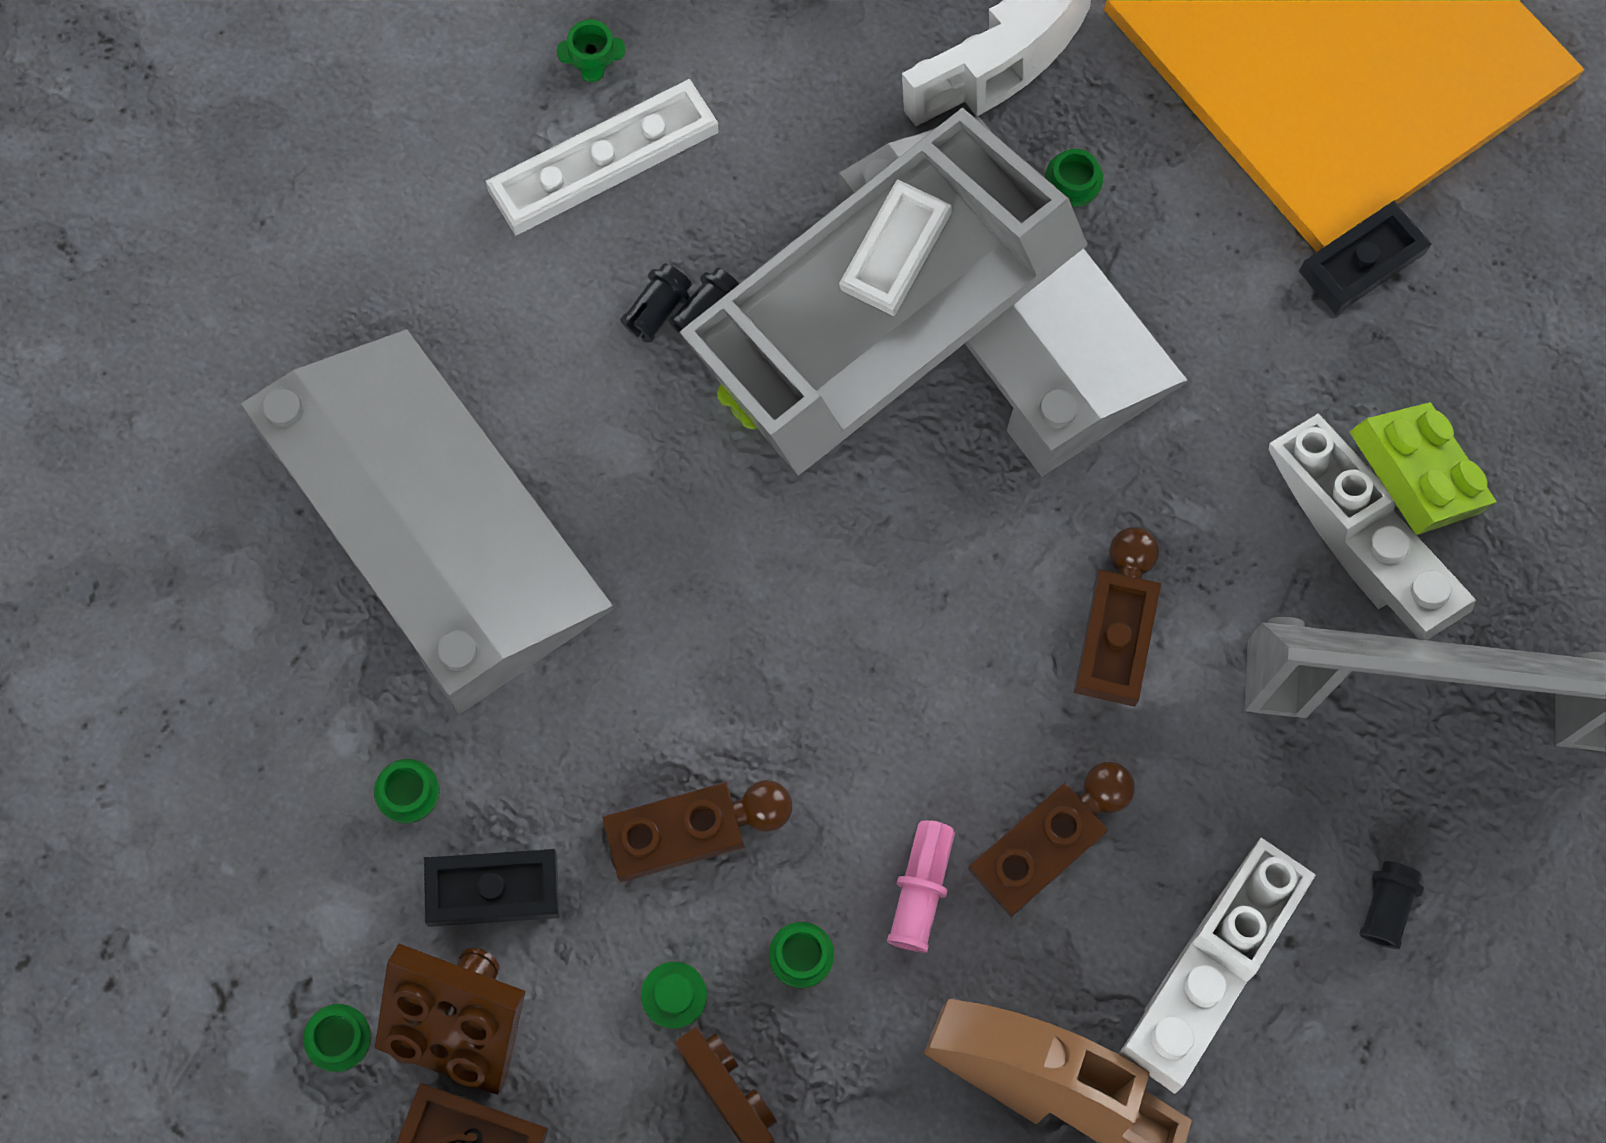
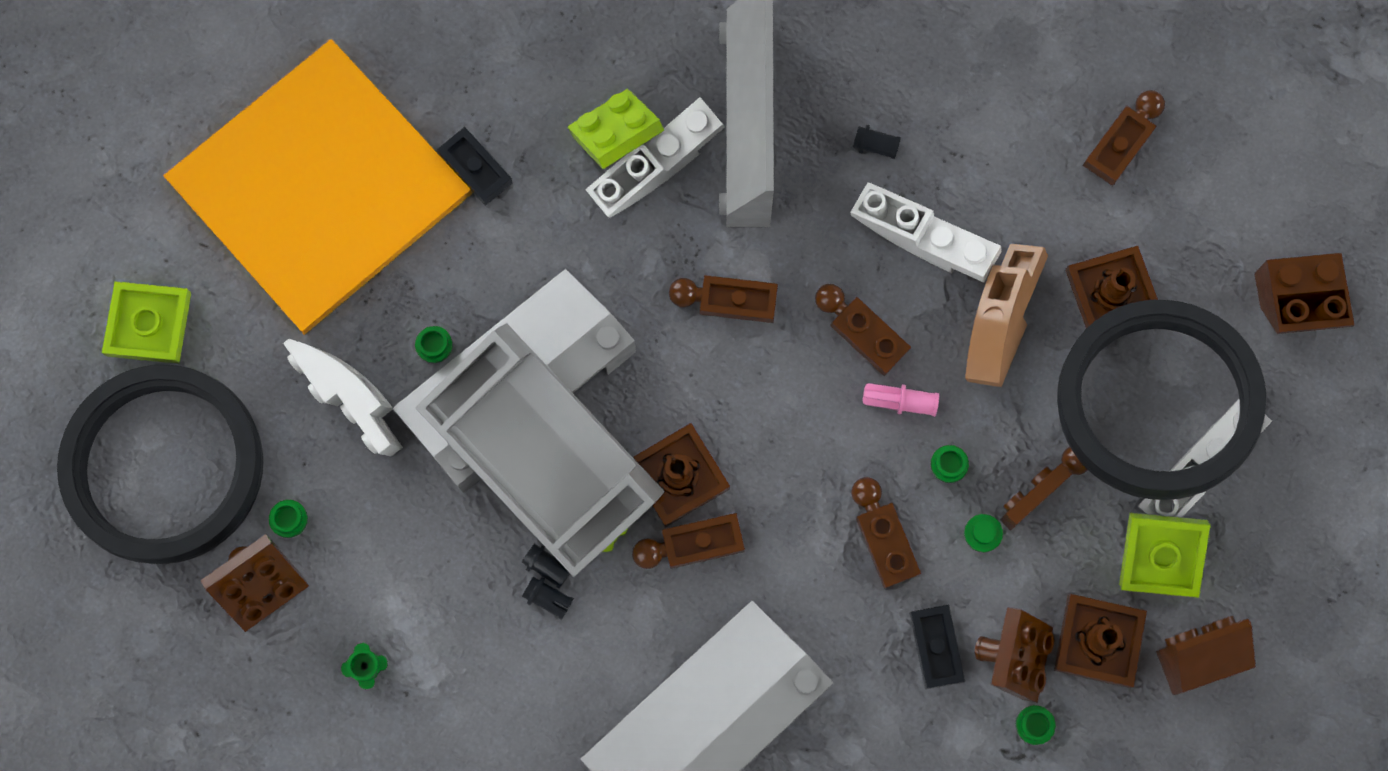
camera: 90 degrees left, 5 degrees up
(406, 791) = (884, 708): green plate -> none
(602, 157) = (443, 648): white tile -> none
(714, 521) = (692, 543): none -> reddish brown plate
(825, 501) = (685, 449): none -> reddish brown plate
(895, 247) = (513, 442): white tile -> none

